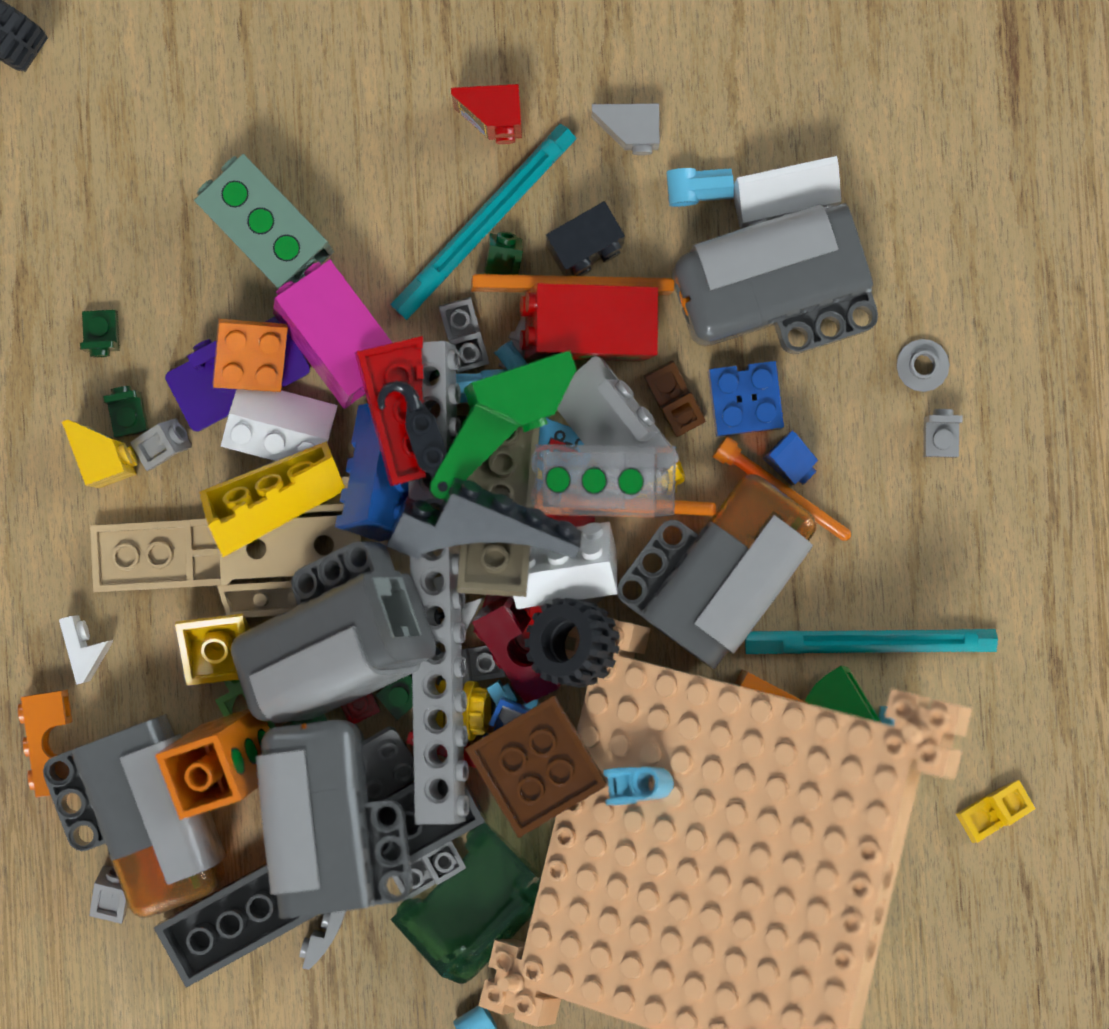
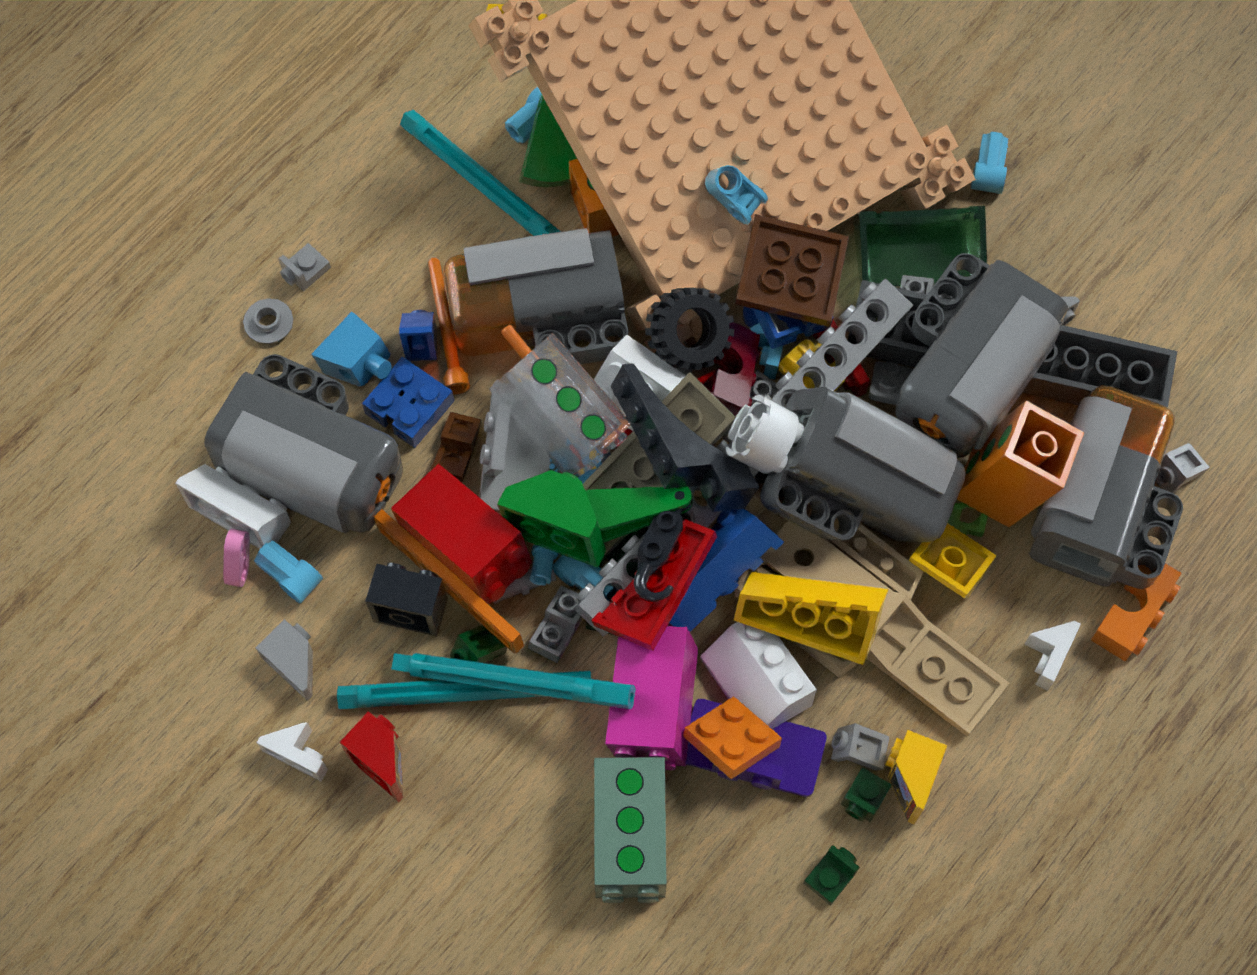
camera: 135 degrees left, 20 degrees down
(417, 587) = (764, 435): none -> white brick
(444, 250) = (516, 680): none -> teal piece
(565, 58) = (287, 747): none -> white slope
(743, 155) = (236, 557): none -> bright pink beam
(824, 397) = (353, 353): none -> dark azure torso

